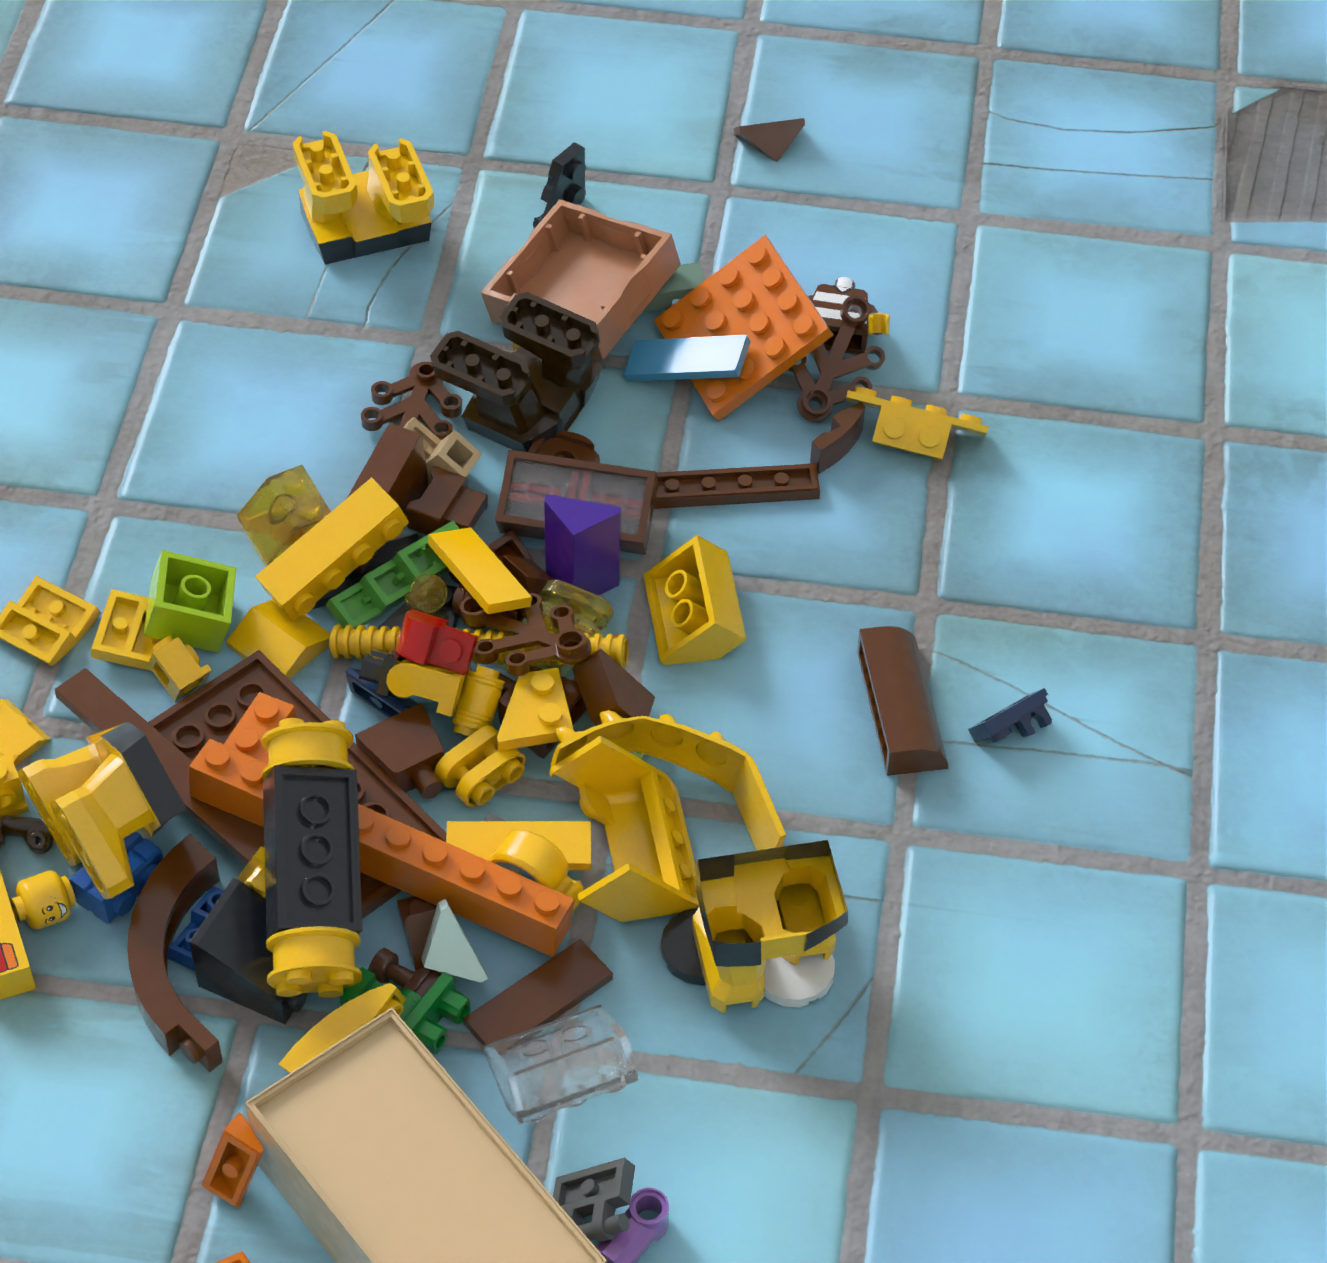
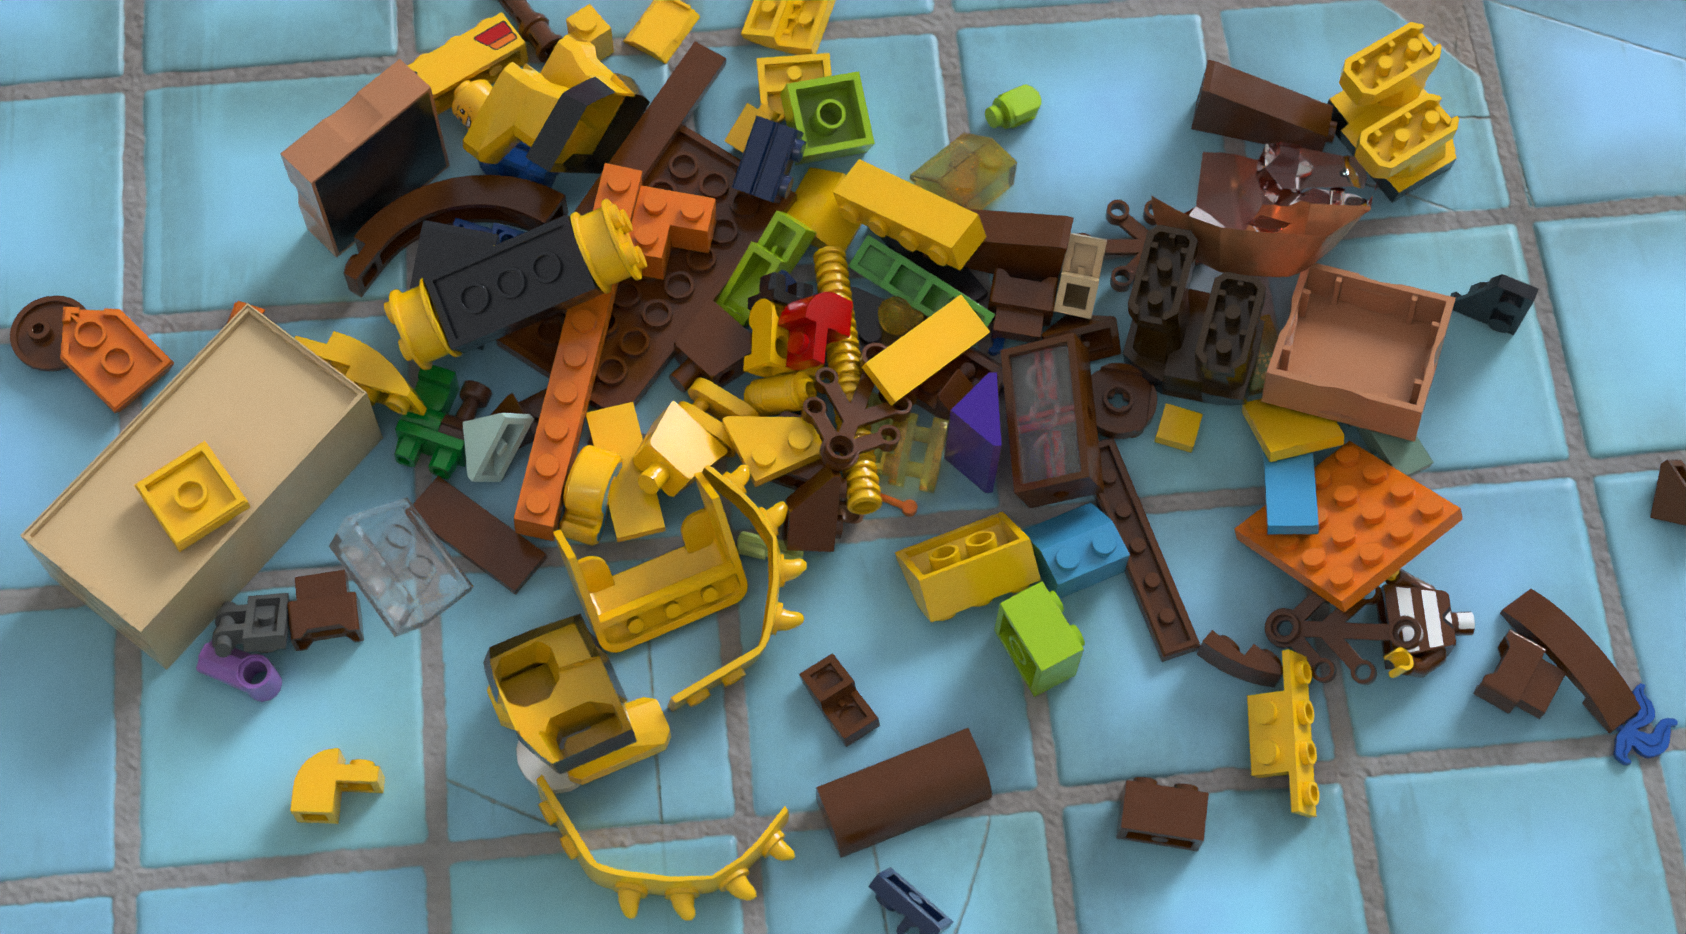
camera: 75 degrees right, 15 degrees up
(94, 980) = (366, 156): none -> tile
(228, 645) = (769, 160): none -> dark blue brick
(229, 467) = (1014, 107): none -> lime arm
(310, 294) = (1259, 110): none -> reddish brown slope
(328, 685) = (777, 250): none -> lime slope
(446, 290) = (1258, 220): none -> piece
(464, 1184) = (192, 496): none -> yellow tile
(489, 471) = (1097, 334): none -> reddish brown slope
(514, 794) = (674, 452): none -> yellow torso
(584, 1138) = (324, 610): none -> reddish brown piece
(603, 430) = (1178, 427): none -> yellow tile
(636, 352) = (1290, 432): none -> yellow tile
(701, 509) = (1077, 550): none -> dark azure slope
(781, 1174) = (324, 778): none -> yellow brick
(788, 560) = (1039, 638): none -> lime brick
(792, 736) = (839, 700): none -> reddish brown slope
(885, 229) = (1576, 653): none -> reddish brown slope
(898, 268) = (1521, 677): none -> reddish brown piece
(920, 949) = (679, 889): none -> yellow piece
(965, 223) = (1643, 743): none -> blue piece
(965, 522) = (1162, 814): none -> reddish brown brick

